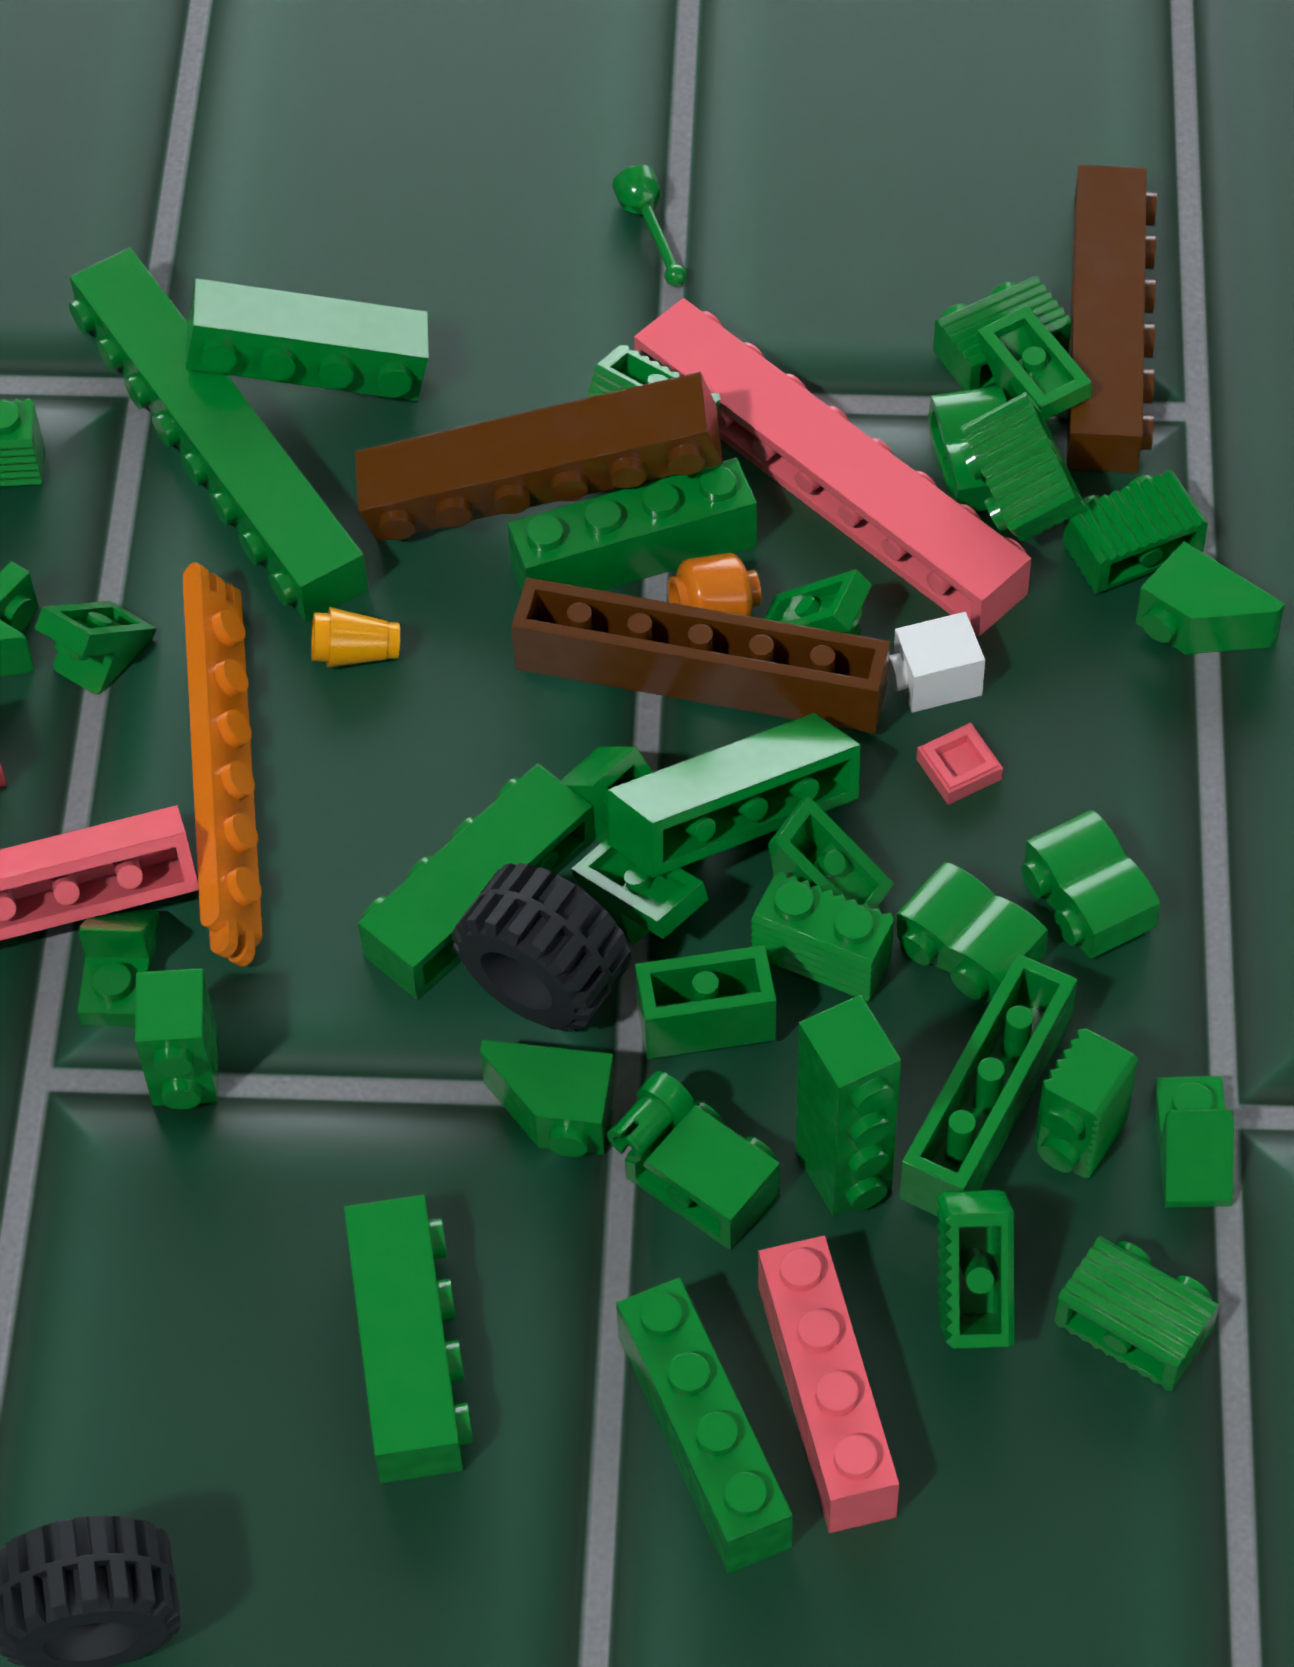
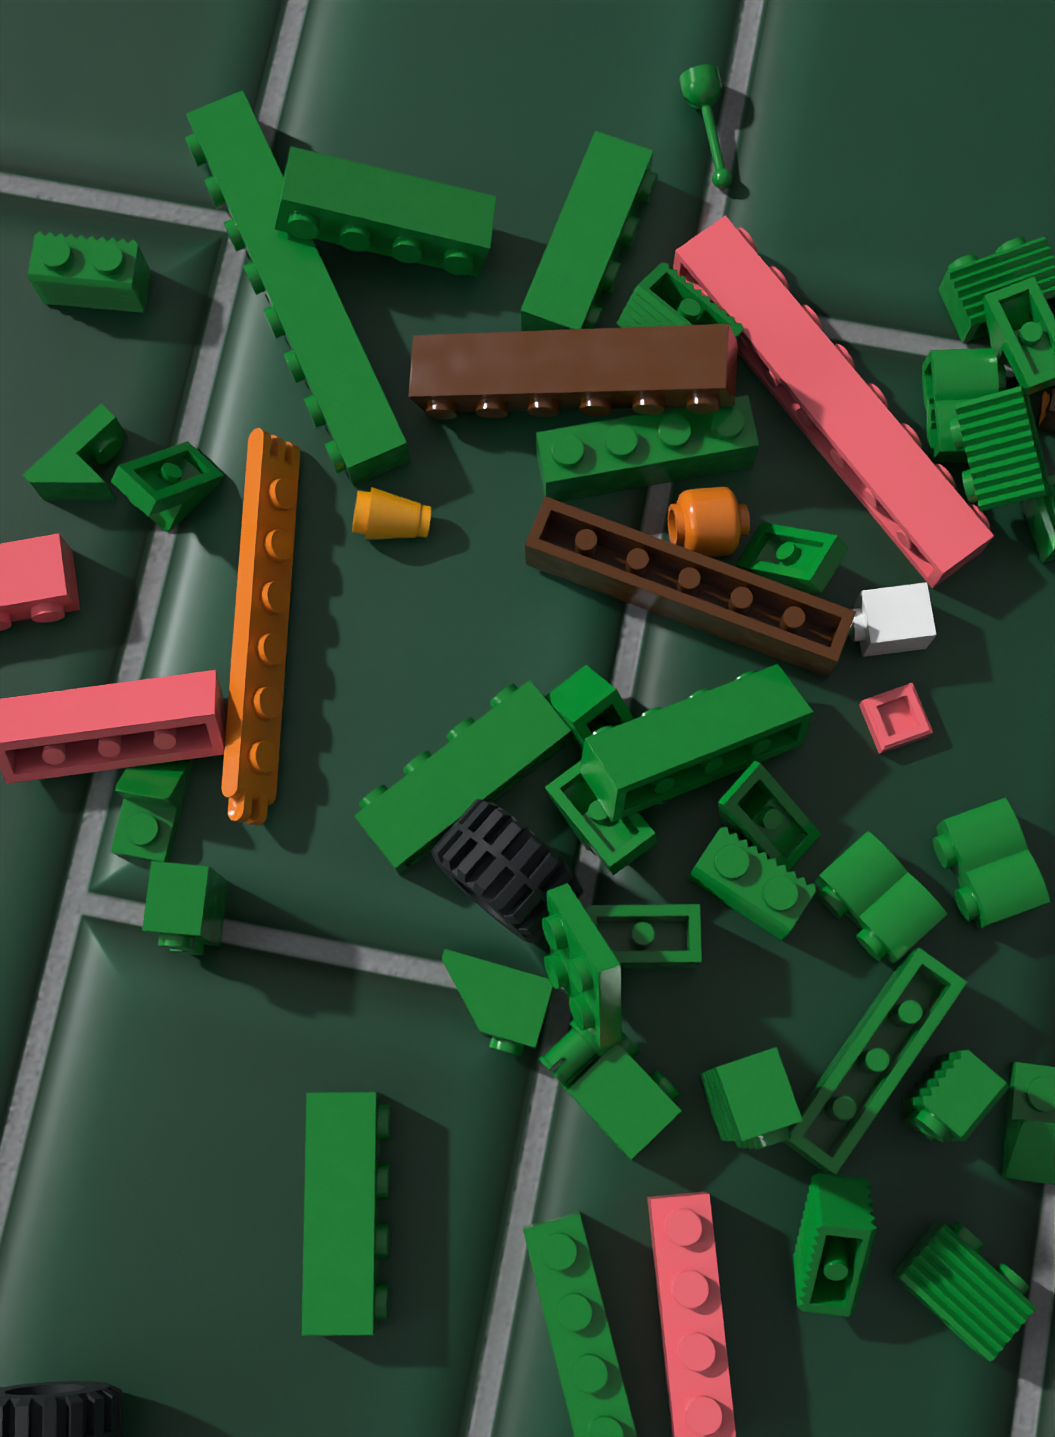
camera: 10 degrees right, 20 degrees up
(540, 330) = (589, 236): none -> green brick
(642, 1006) = (583, 967): none -> green plate

